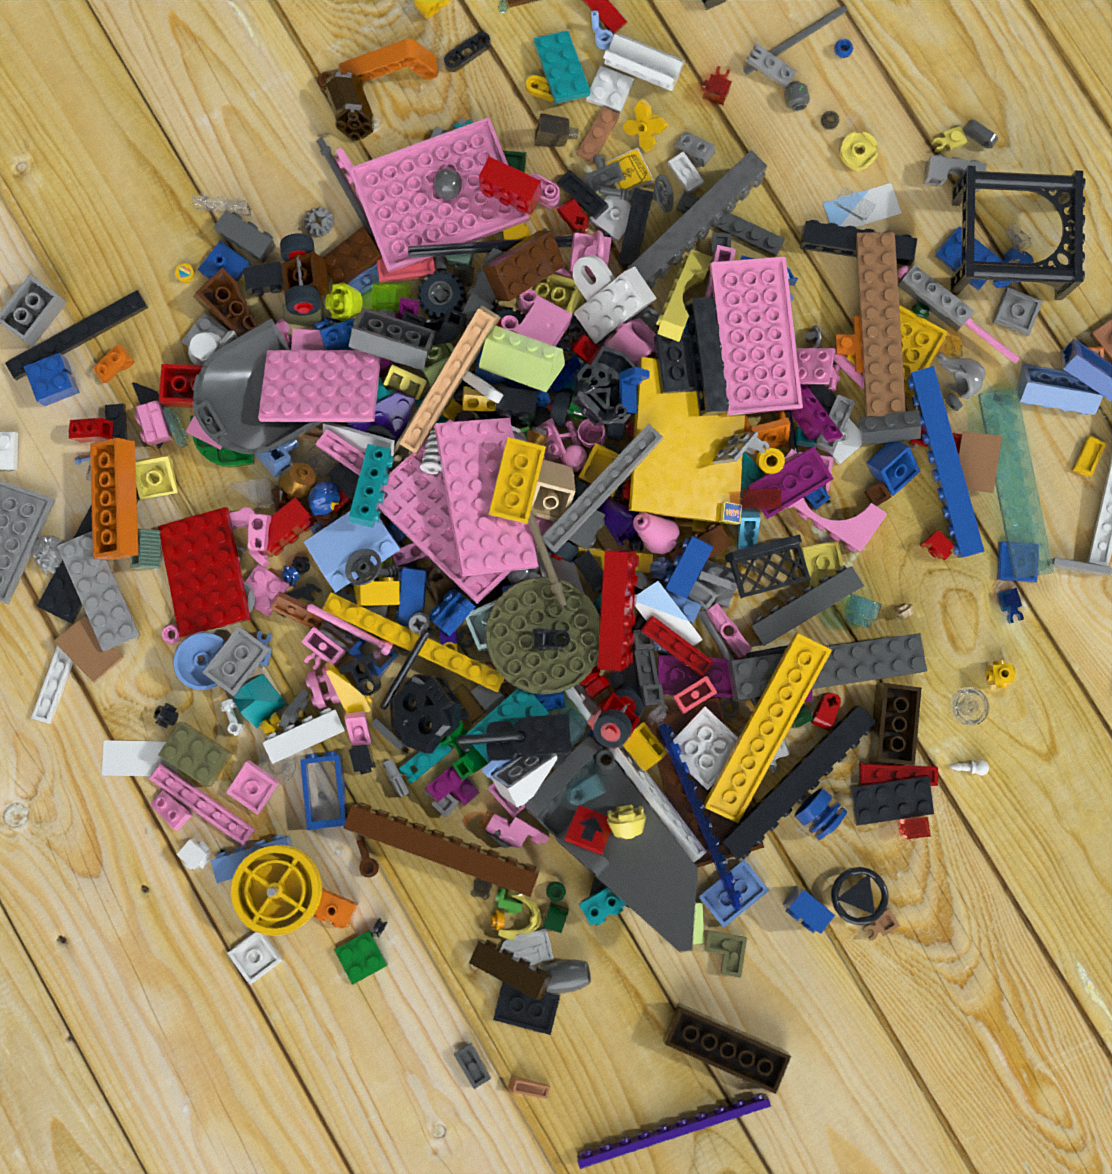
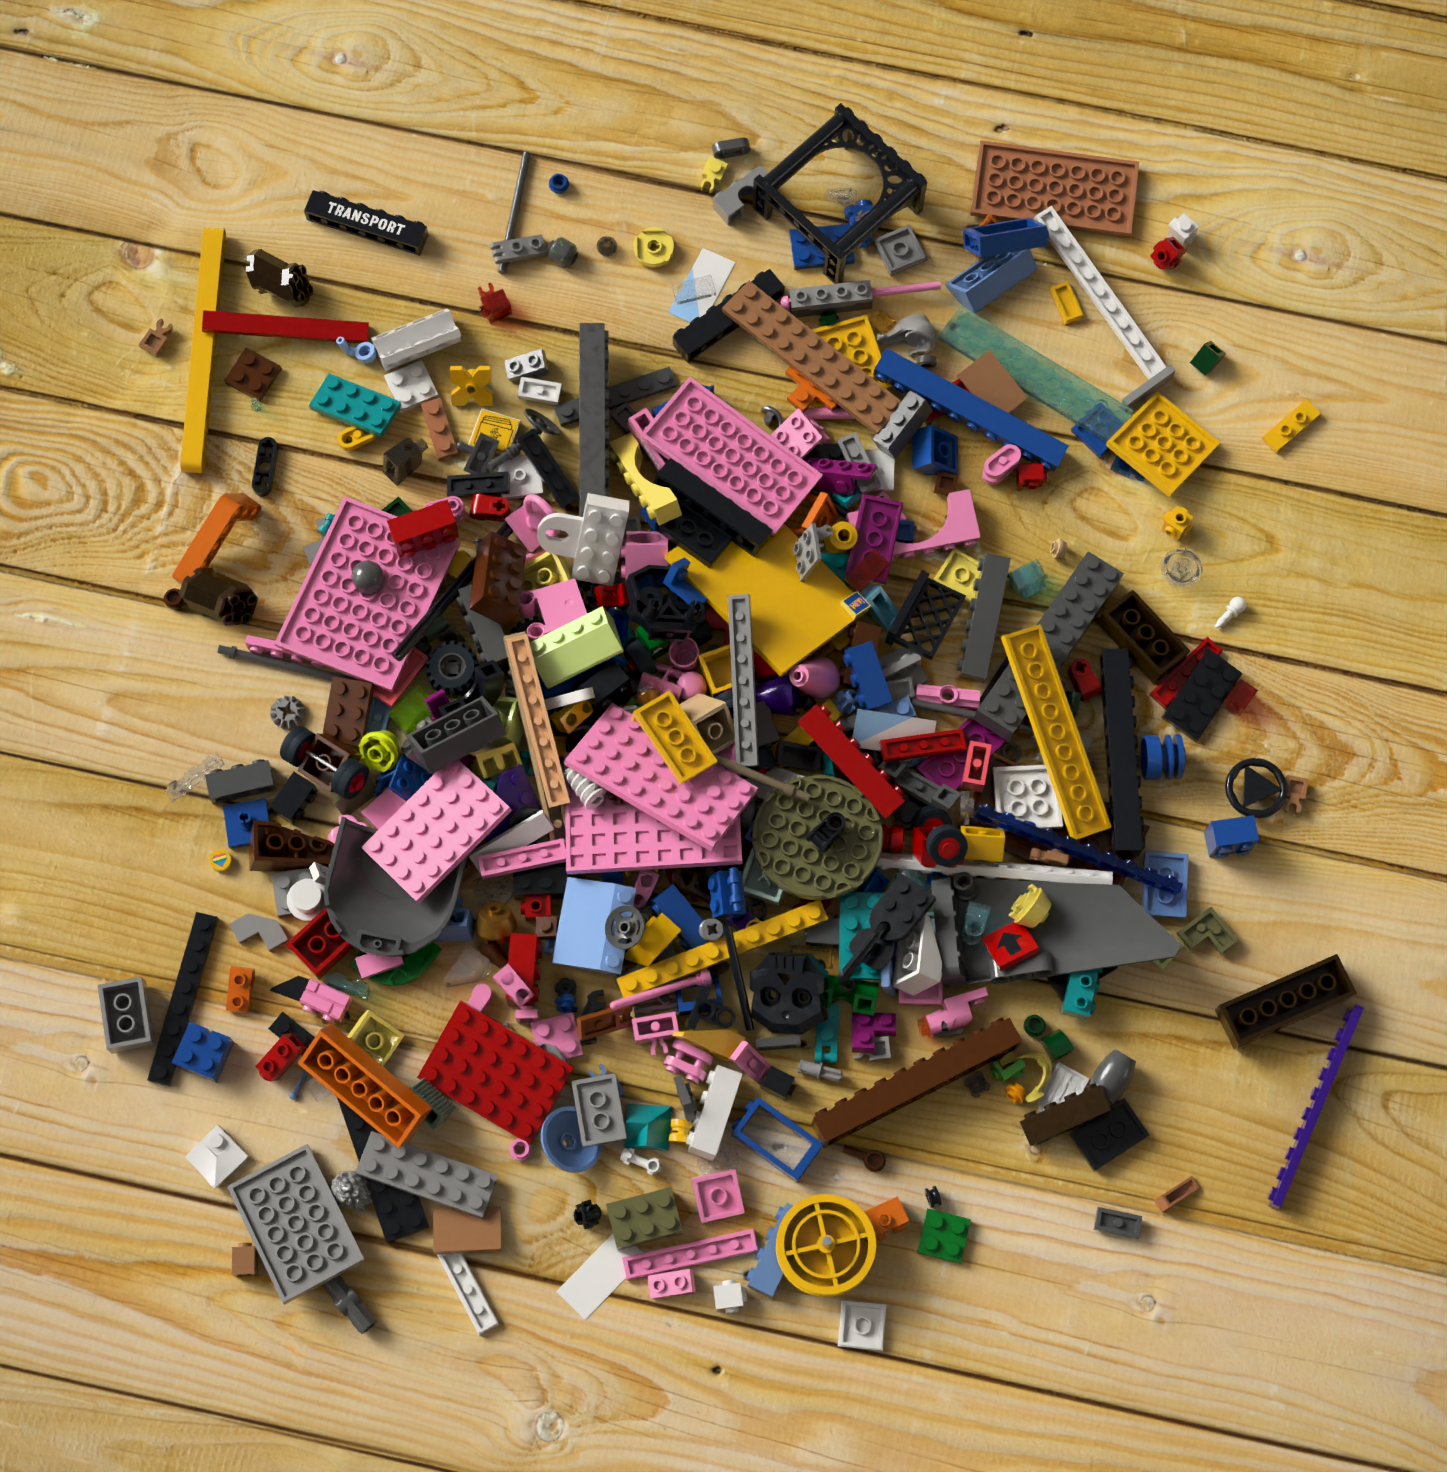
camera: 50 degrees left, 10 degrees down
(160, 331) = (252, 925): none -> light grey tile
(323, 498) = (531, 913): blue hair -> none
(370, 486) = (564, 858): teal brick -> none
(681, 803) = (1054, 857): none -> medium nougat plate
(927, 518) = (1001, 464): none -> bright pink brick
(1048, 613) = (1163, 444): none -> yellow plate

